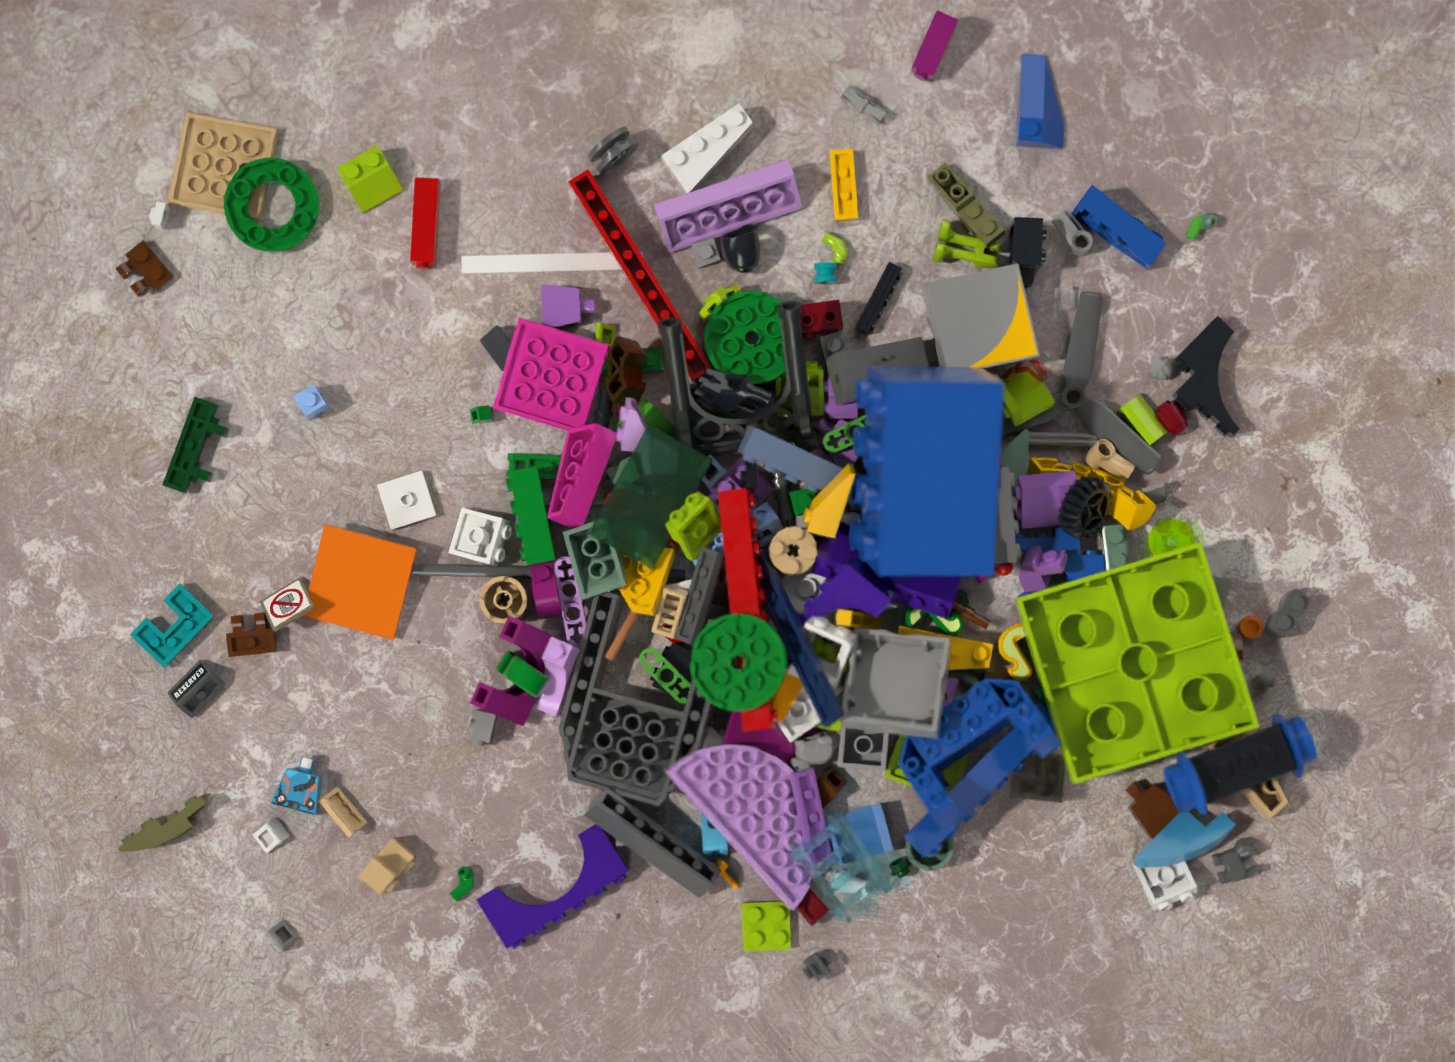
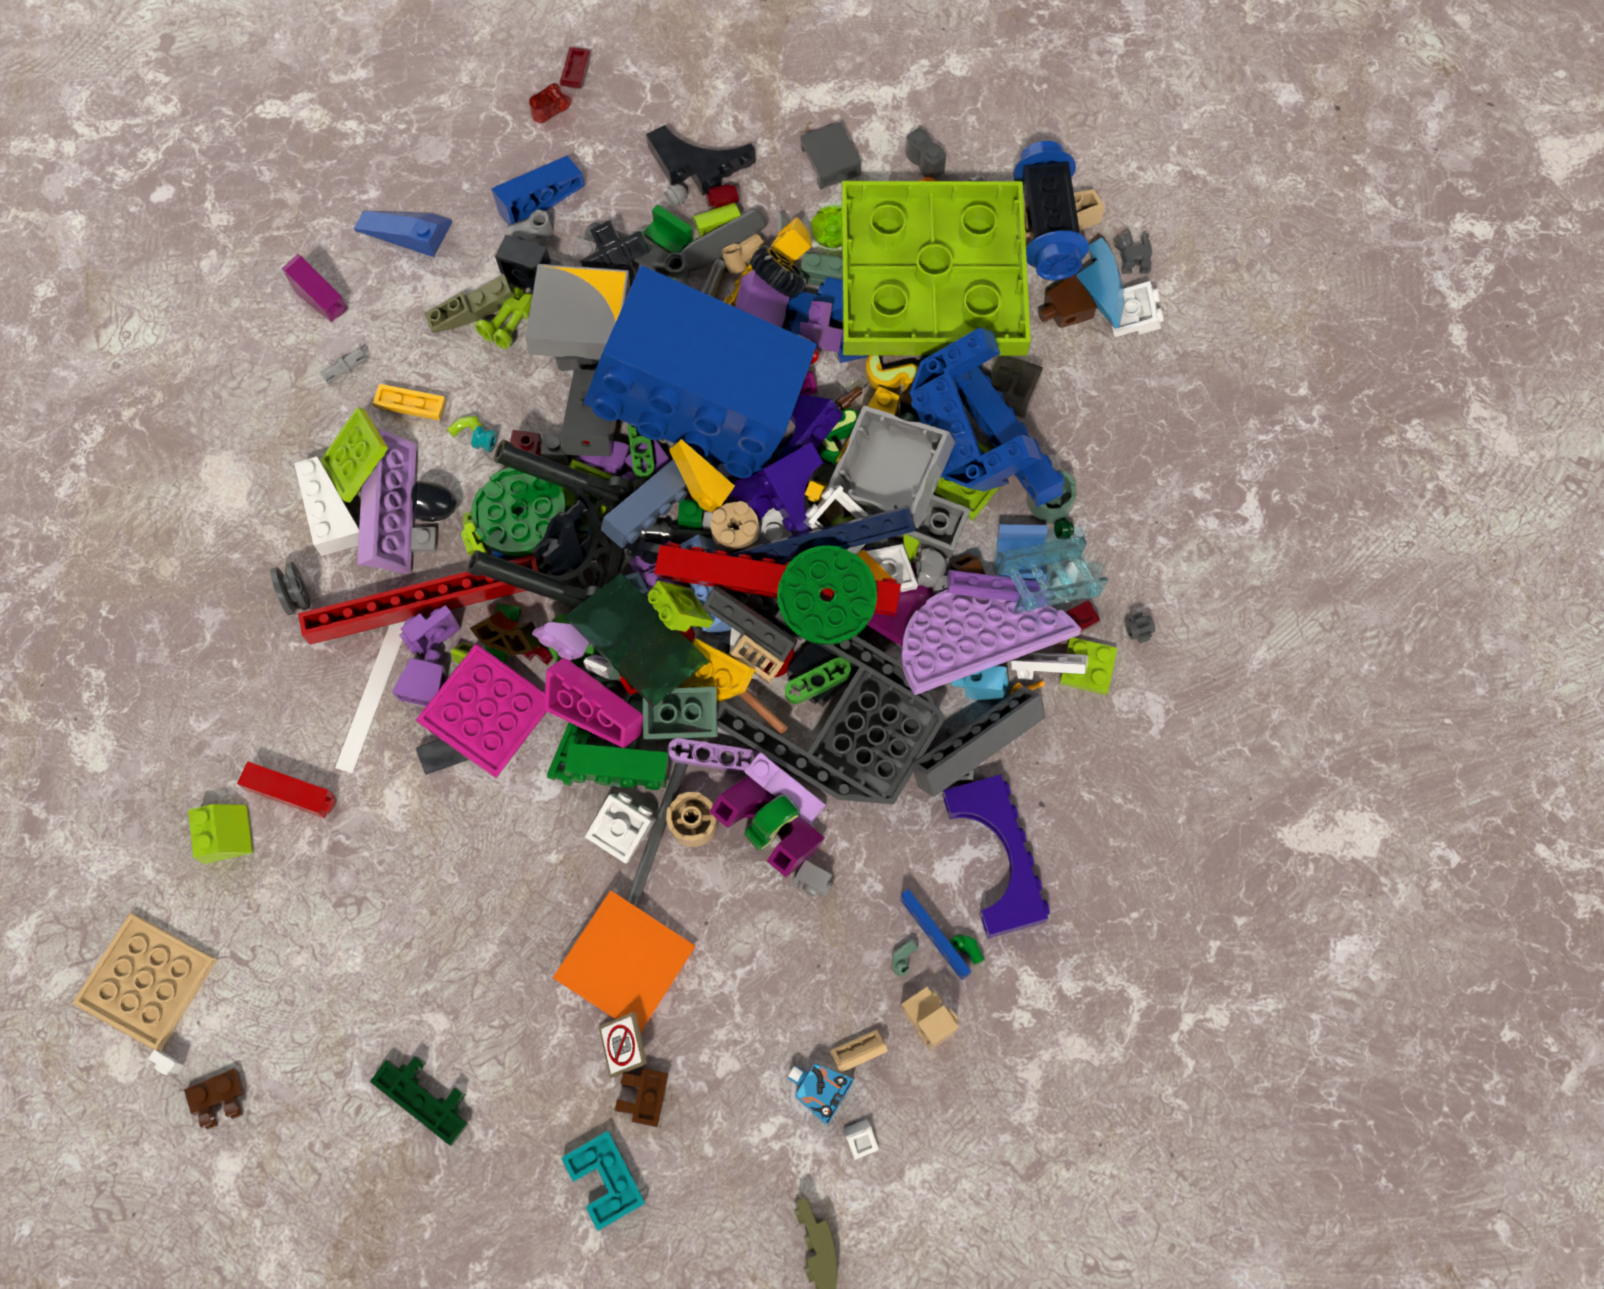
camera: 75 degrees left, 15 degrees down
(195, 689) = (679, 1174): dark grey panel -> none
(266, 171) = (188, 907): green plate -> none
(282, 935) = (972, 1159): light grey slope -> none
(311, 401) = (421, 957): light blue brick -> none
(406, 500) = (558, 892): white plate -> none
(437, 825) = (900, 957): none -> sand green arm
(464, 851) = (935, 935): none -> blue tile
(481, 414) = (498, 786): green piece -> none
(545, 590) = (696, 774): magenta brick -> none
(604, 409) = (532, 670): black pin -> none
(606, 291) = (430, 633): none -> medium lavender plate
(618, 465) = (598, 666): none -> white slope
(752, 893) = (1049, 662): none -> white hinge
(763, 157) = (354, 454): none -> lime plate
(879, 298) = (525, 402): black piece -> none
(1063, 332) = (615, 252): none -> black plate
(1113, 375) = (668, 231): none -> green panel
(1200, 223) = (560, 132): arm -> none
(1232, 199) = (547, 103): none -> clear red piece
(1257, 514) = (831, 155): none -> dark grey panel
(1284, 211) = (575, 67): none -> dark red plate

